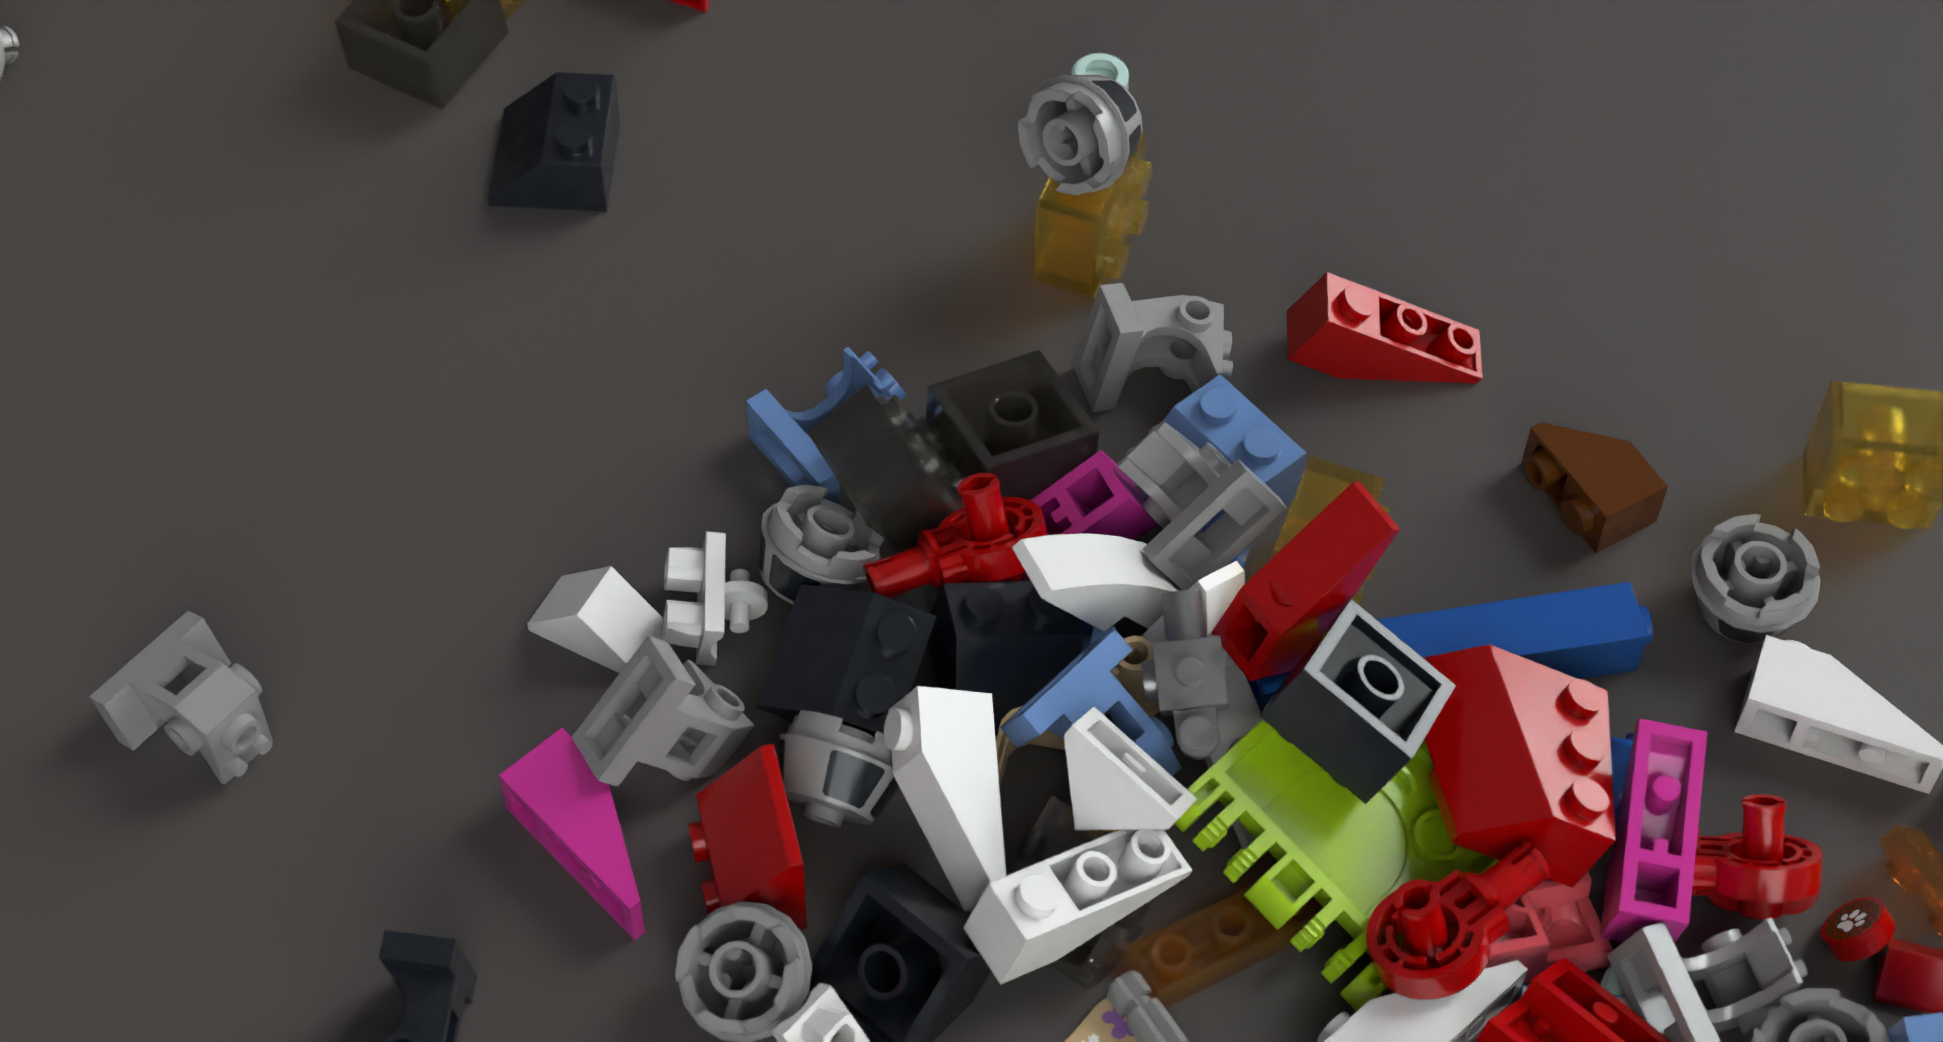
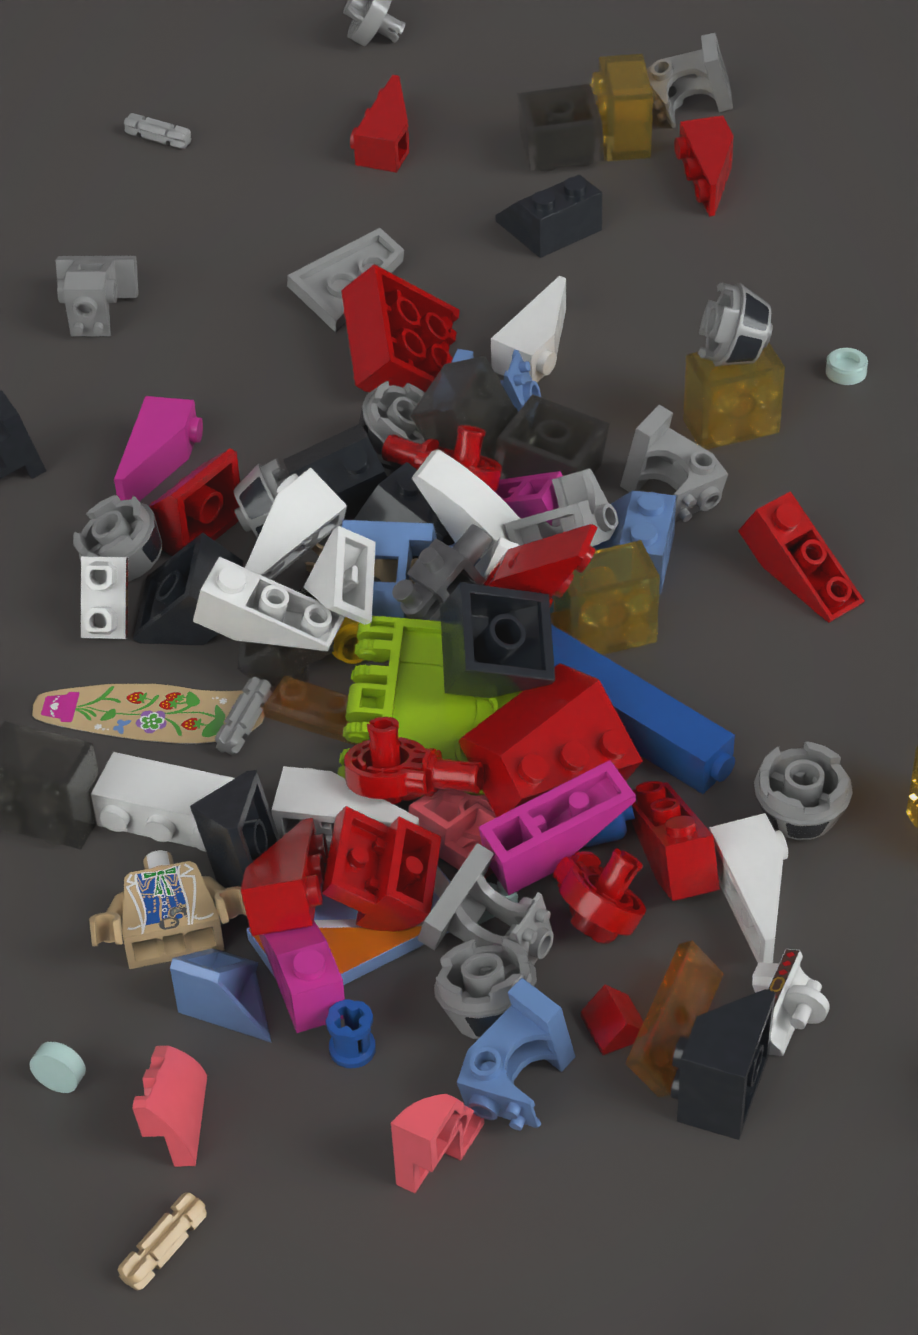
camera: 55 degrees right, 10 degrees down
(209, 185) = (383, 134): none -> red slope
(452, 420) = (322, 280): none -> light grey wing
(597, 617) = (284, 393): white slope -> none
(645, 447) = (396, 331): none -> red wedge
(681, 727) = (224, 409): light grey tile -> none
(702, 622) = (331, 416): white hips -> none
(777, 312) = (533, 333): none -> white slope
(1594, 481) = (803, 698): reddish brown slope -> none
(1748, 744) = (674, 841): none -> red slope
(1858, 929) = (612, 973): red tile -> none

